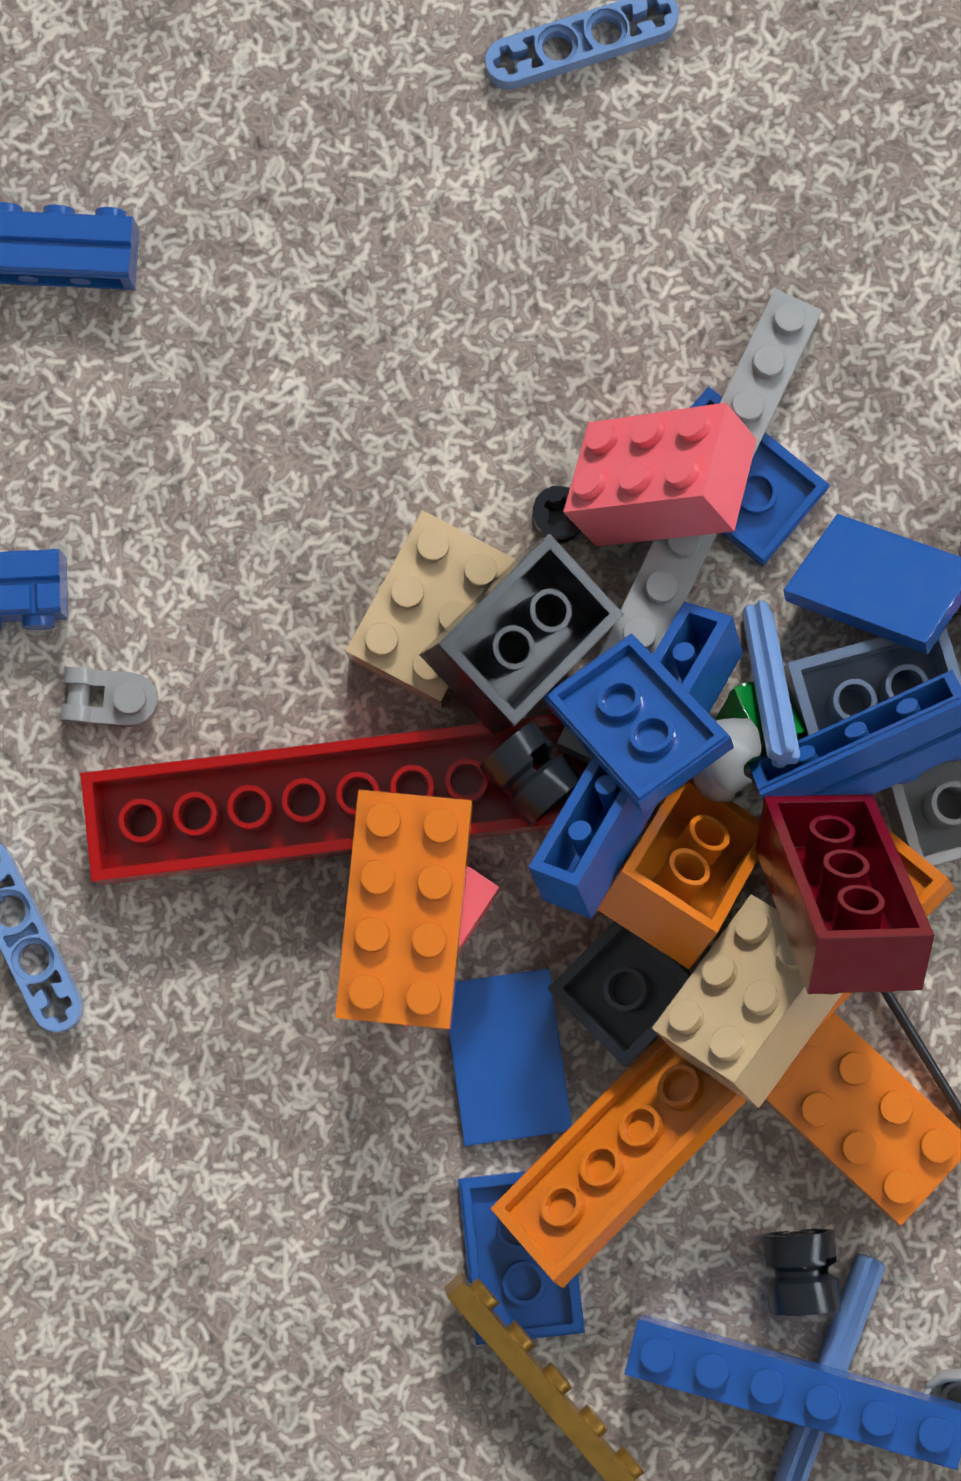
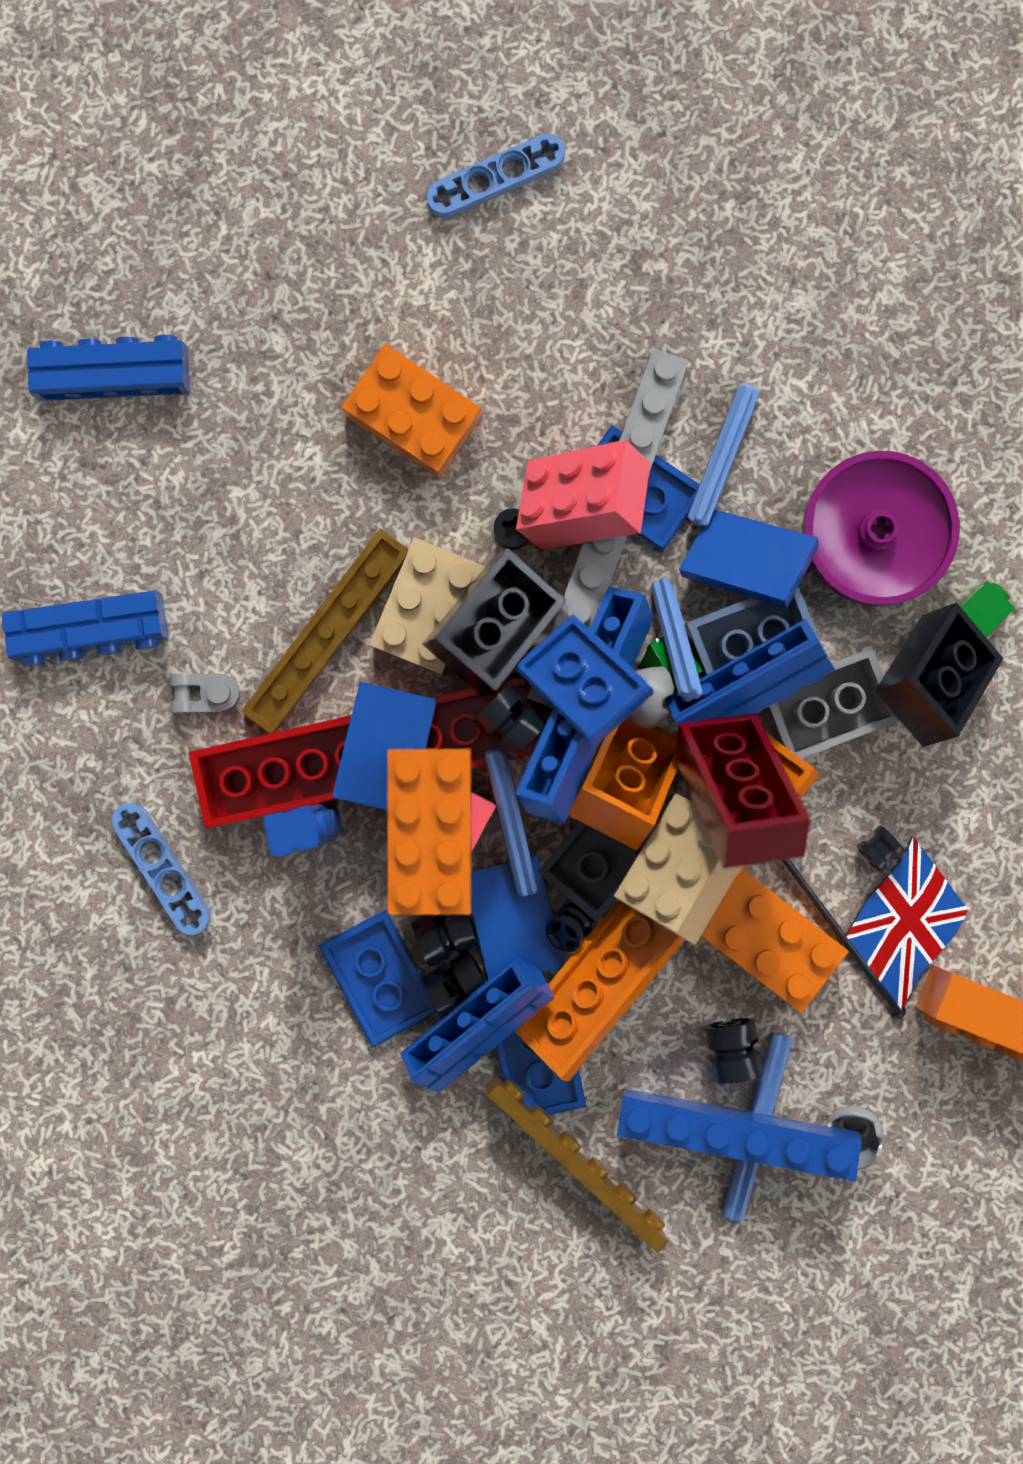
camera: 10 degrees left, 5 degrees up
(228, 890) = (302, 828): none -> blue brick
(286, 630) = (326, 632): none -> pearl gold plate
(310, 1120) = (378, 977): none -> blue tile
(346, 755) = (380, 722): none -> blue tile
(408, 1065) = (443, 934): none -> black wheel
(436, 342) = (412, 411): none -> orange brick
(436, 1131) = (467, 976): none -> black wheel
(441, 1197) = (477, 1025): none -> blue brick
(517, 915) = (511, 821): none -> medium blue axle
(584, 1073) = (569, 928): none -> black wheel
(858, 442) = (723, 455): none -> medium blue axle

